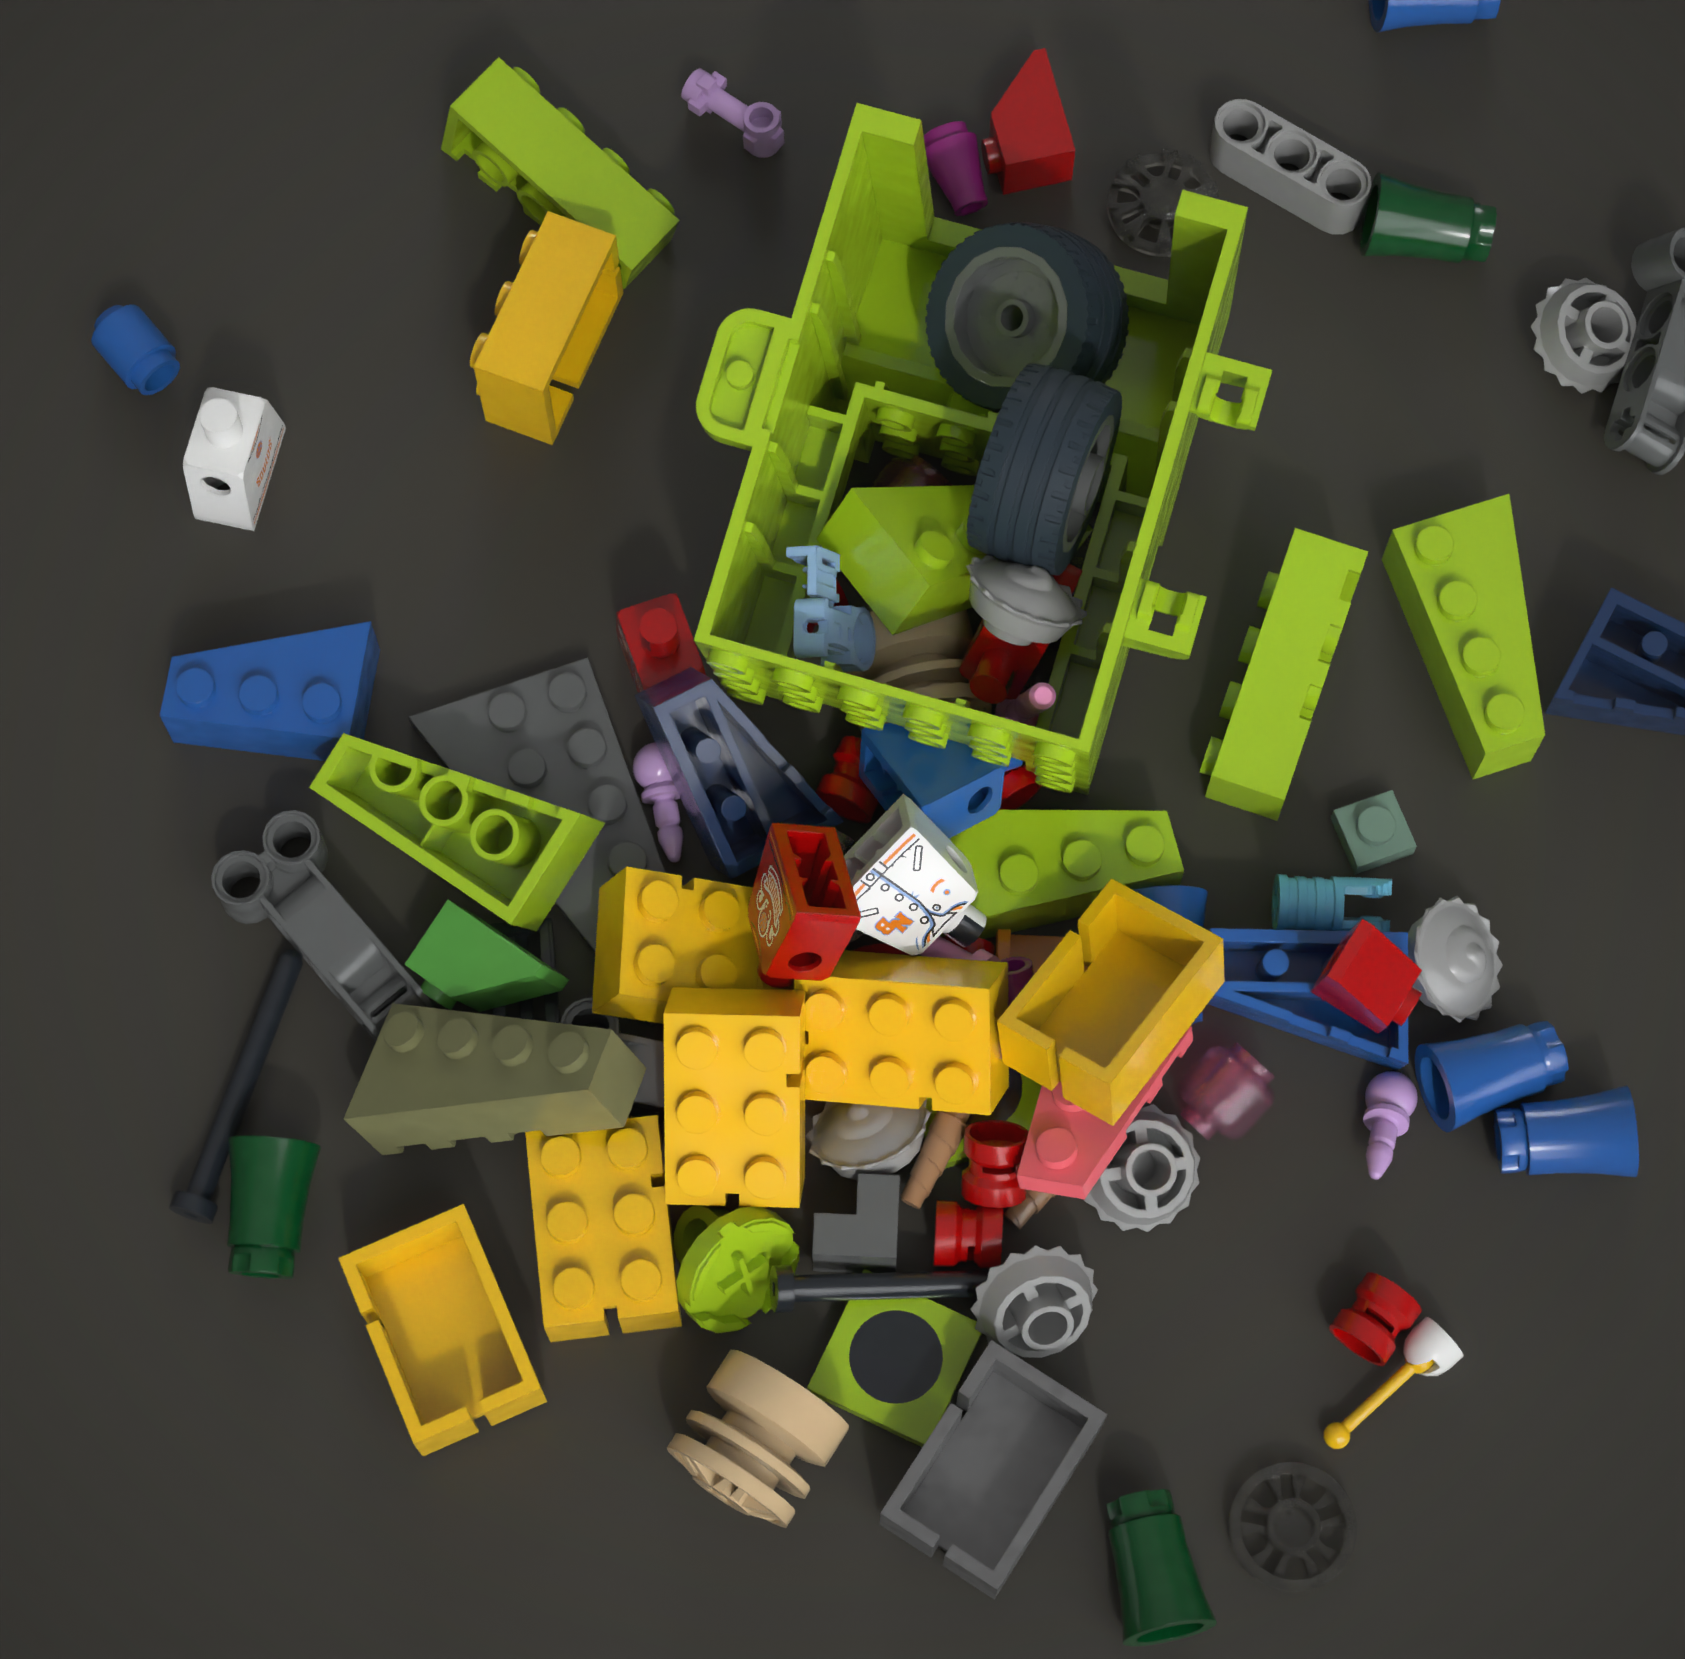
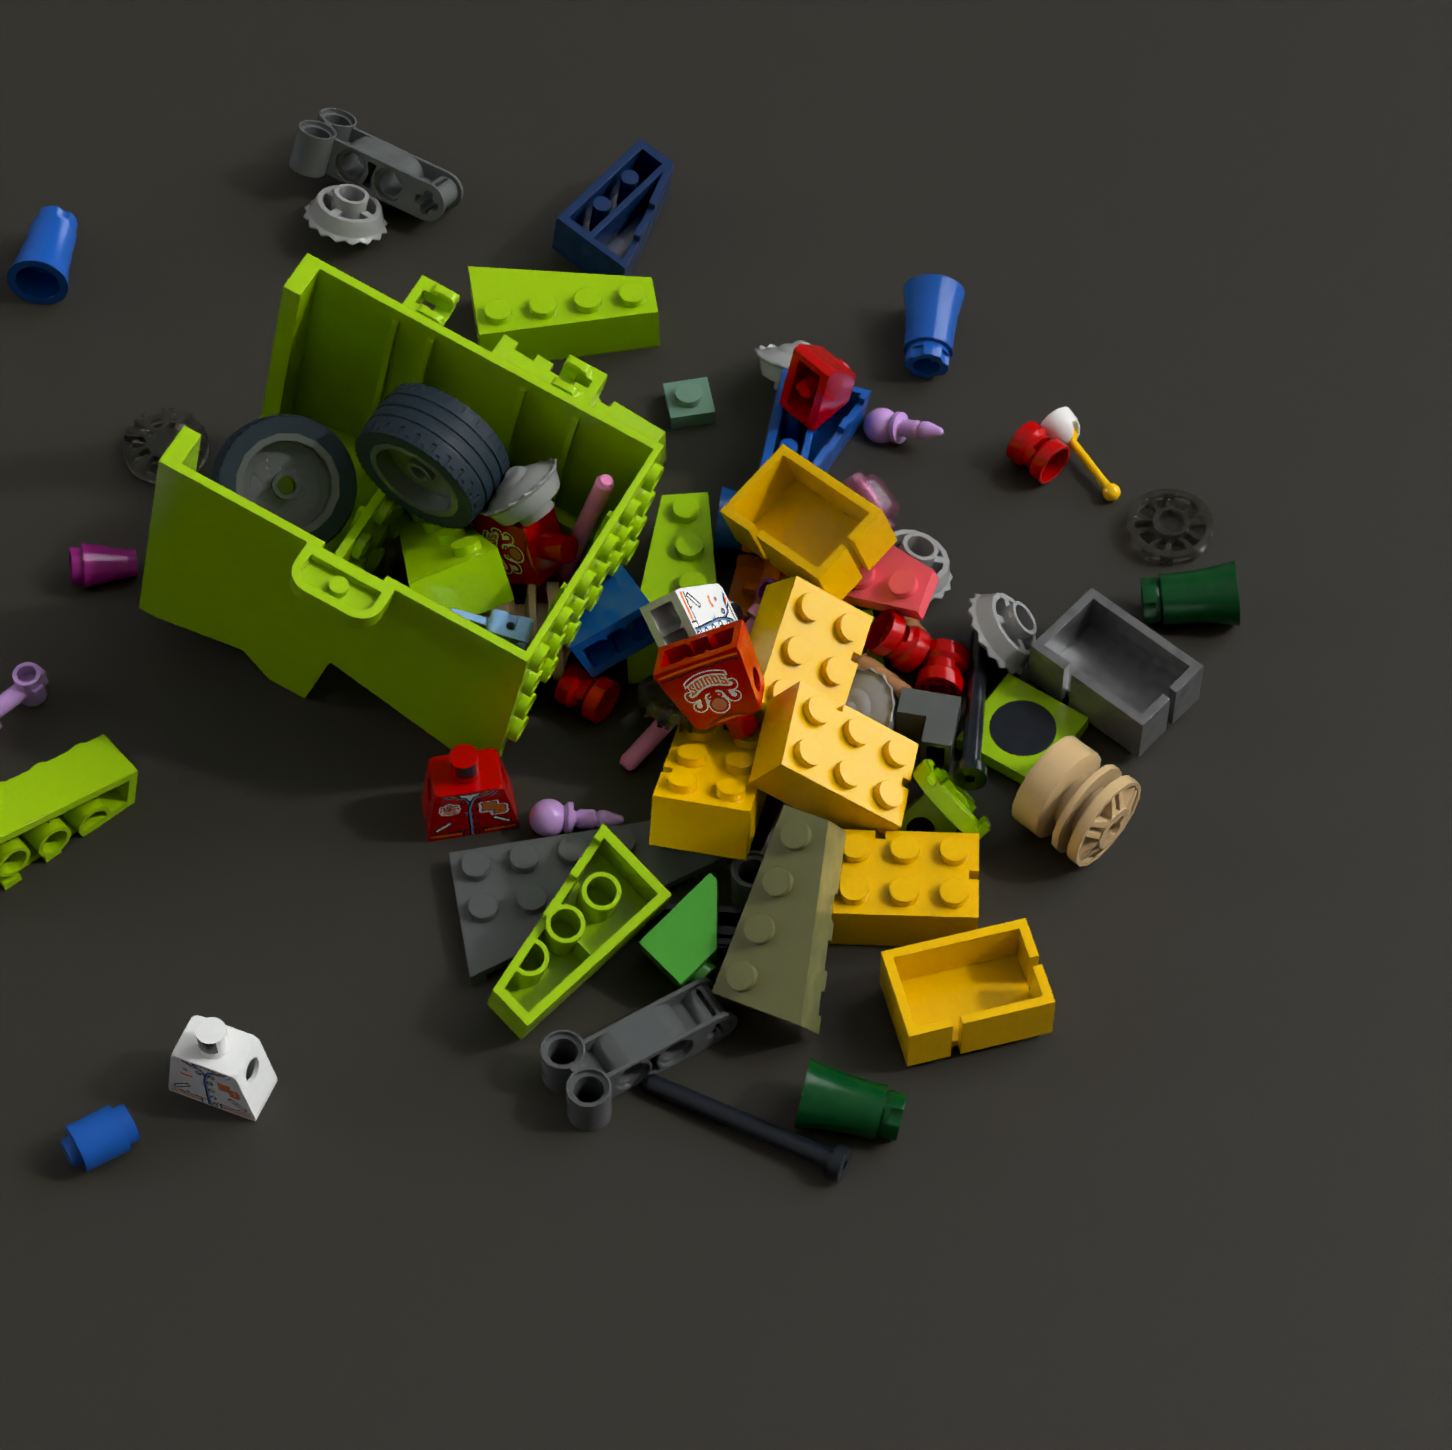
camera: 80 degrees left, 15 degrees down
(275, 693) = (438, 1057): blue wedge -> none
(547, 326) = (173, 830): yellow piece -> none
(726, 771) = (578, 751): dark blue wedge -> none
(1029, 131) = (82, 509): red slope -> none
(1276, 142) = (163, 361): light grey beam -> none
(1319, 902) = (738, 435): medium azure hinge -> none
(1424, 223) = (233, 292): dark green plant -> none
(1488, 1071) = (880, 361): blue plant -> none

